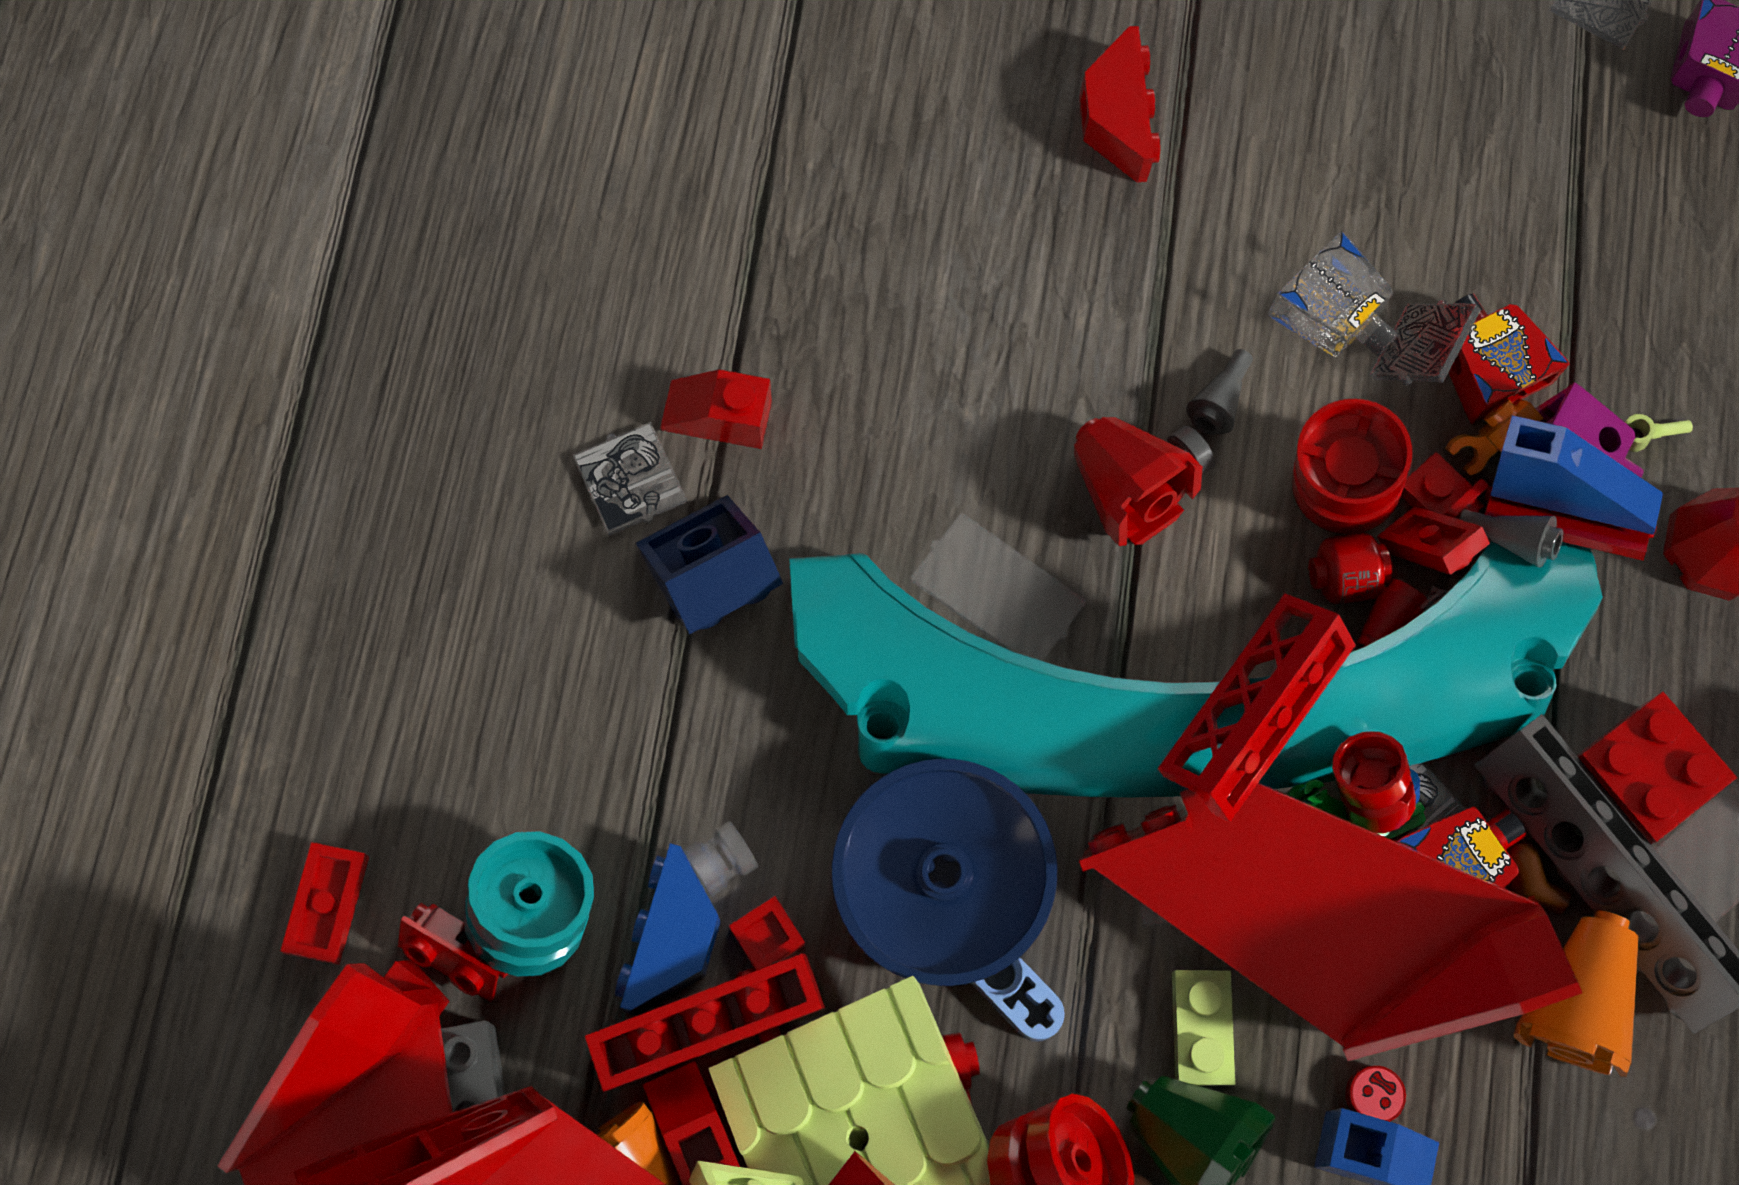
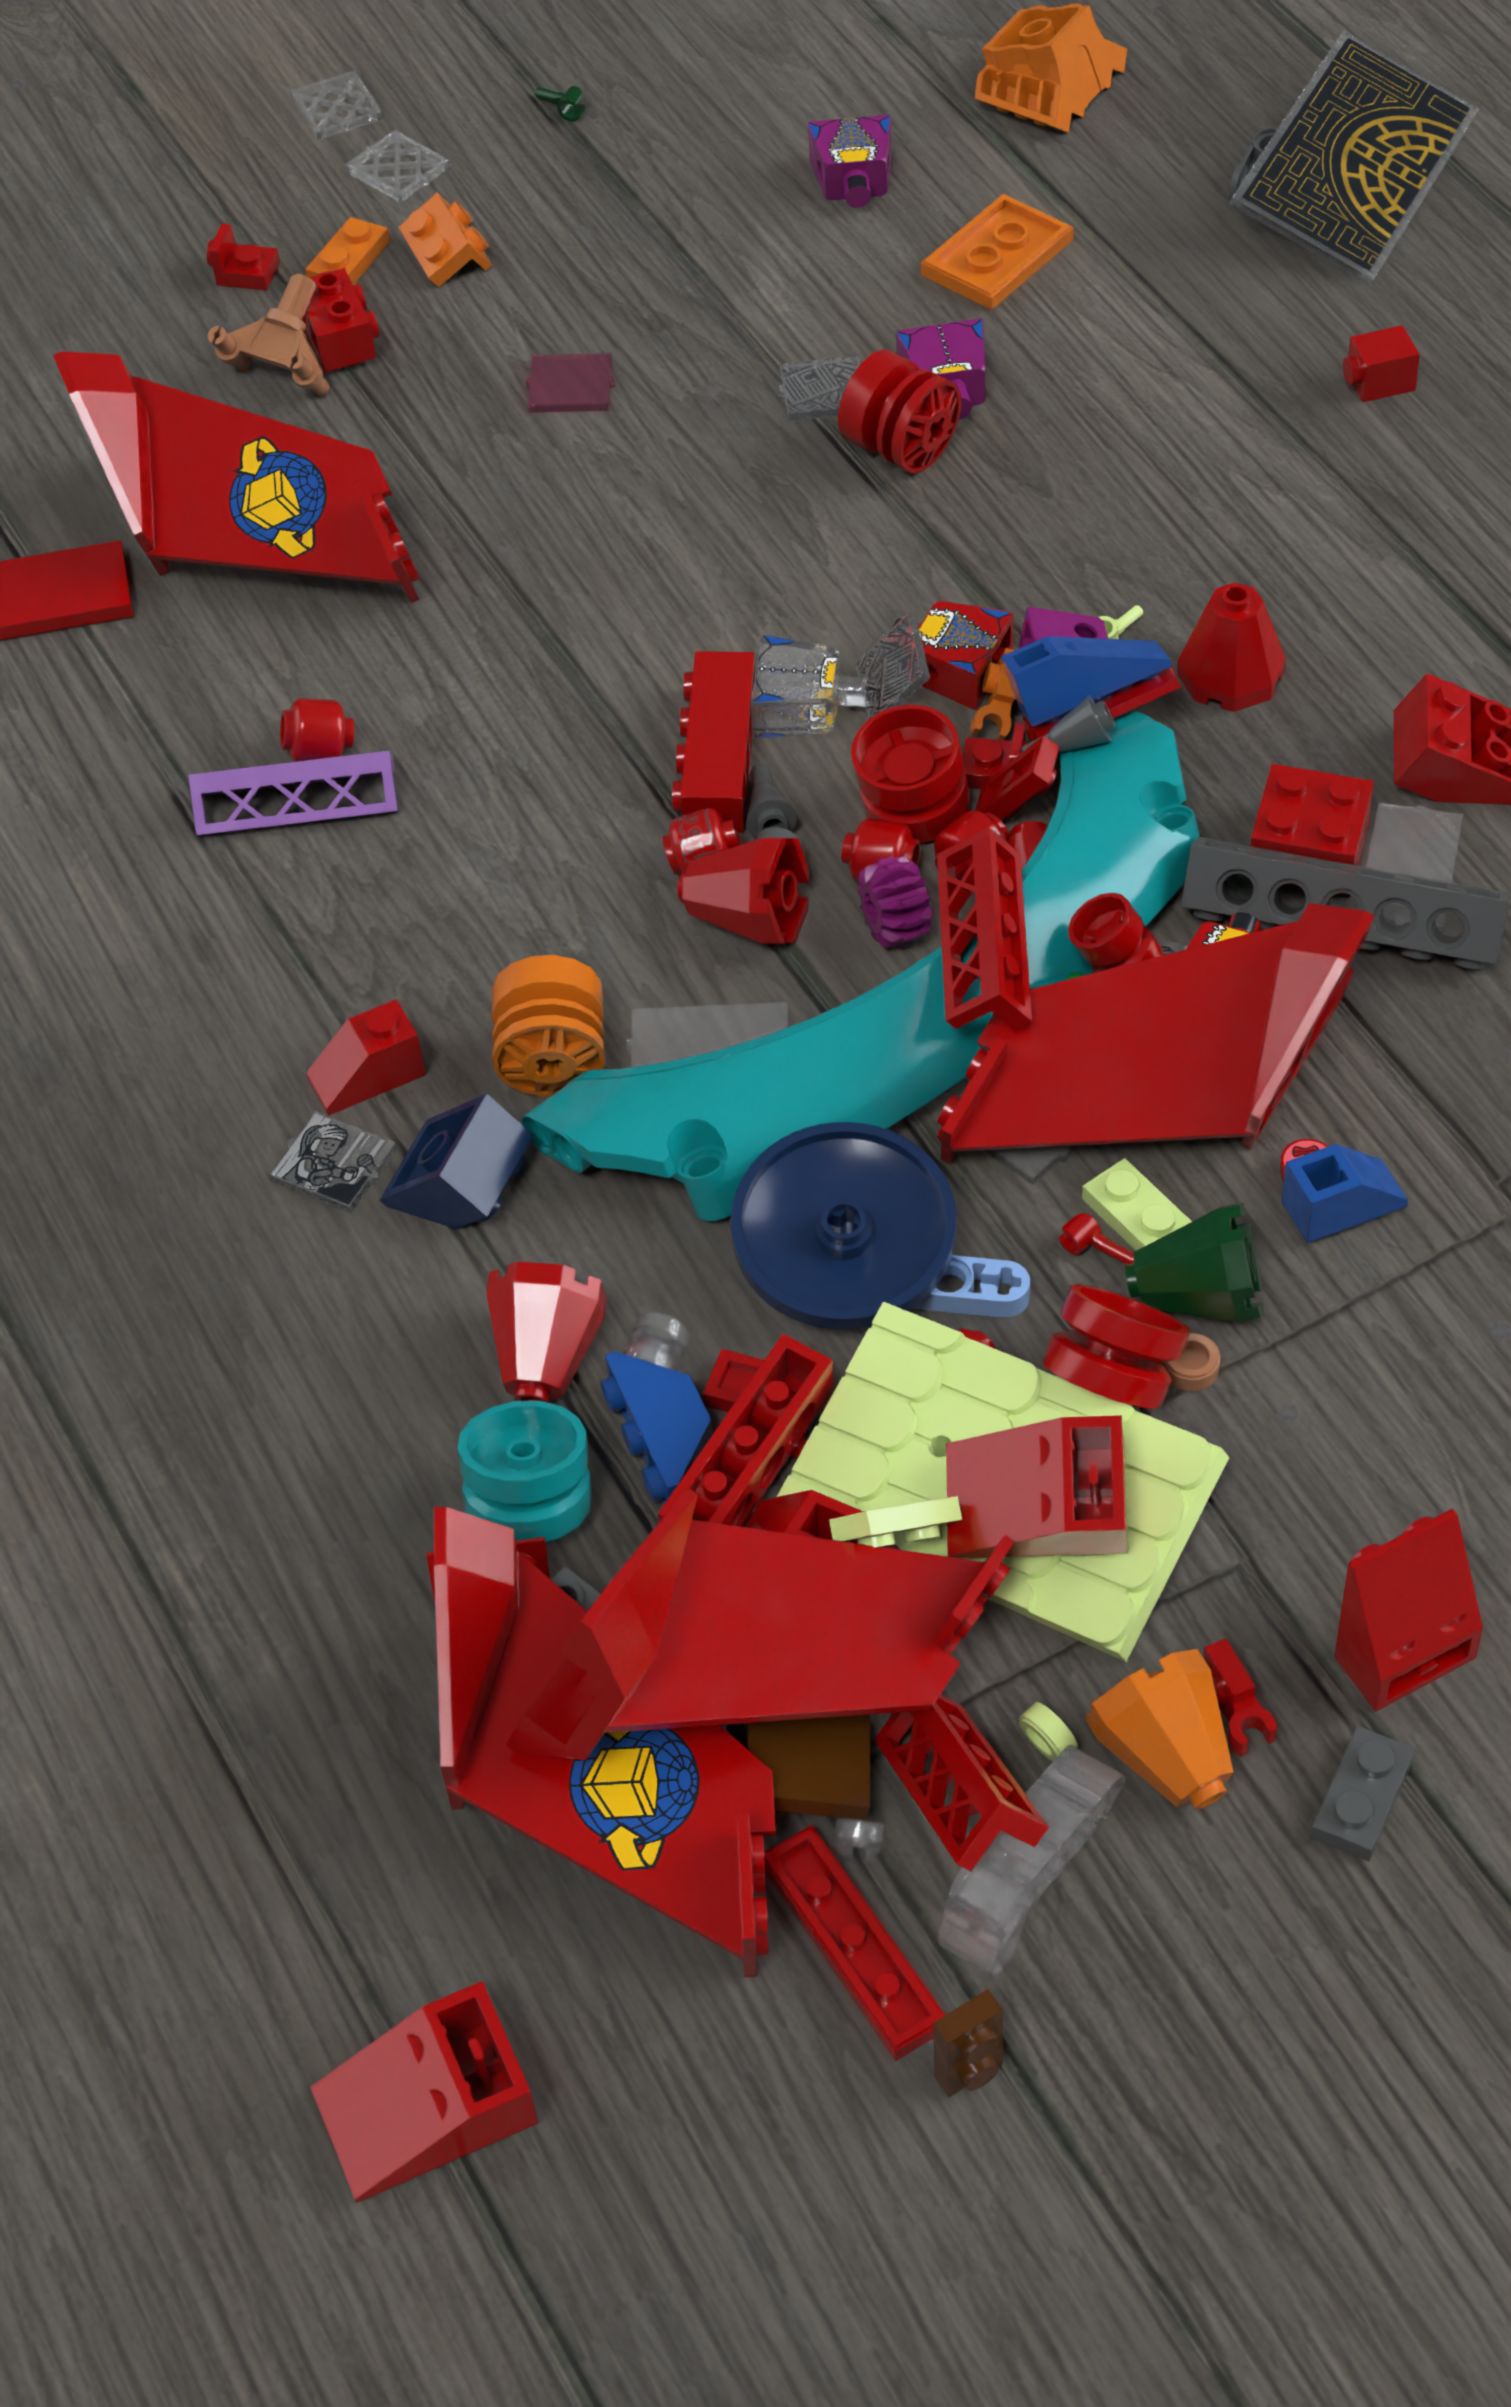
camera: 30 degrees left, 20 degrees down
(325, 903) = (346, 1607): red plate -> none
(645, 777) = (542, 1326): none -> red cone
(869, 84) = (292, 774): none -> medium lavender fence
(869, 492) = (546, 1023): none -> orange wheel
(920, 56) = (315, 729): none -> red head
(1119, 107) = (512, 671): red slope -> none
(1135, 396) = (697, 837): none -> red head
(1141, 1012) = (1085, 1231): none -> red hand
(1227, 305) = (716, 735): none -> red brick
(1240, 580) = (894, 901): none -> magenta gear
(1271, 518) = (875, 841): none -> red head
(1598, 1025) = (1404, 995): orange cone -> none
(1641, 80) = (899, 411): none -> red wheel

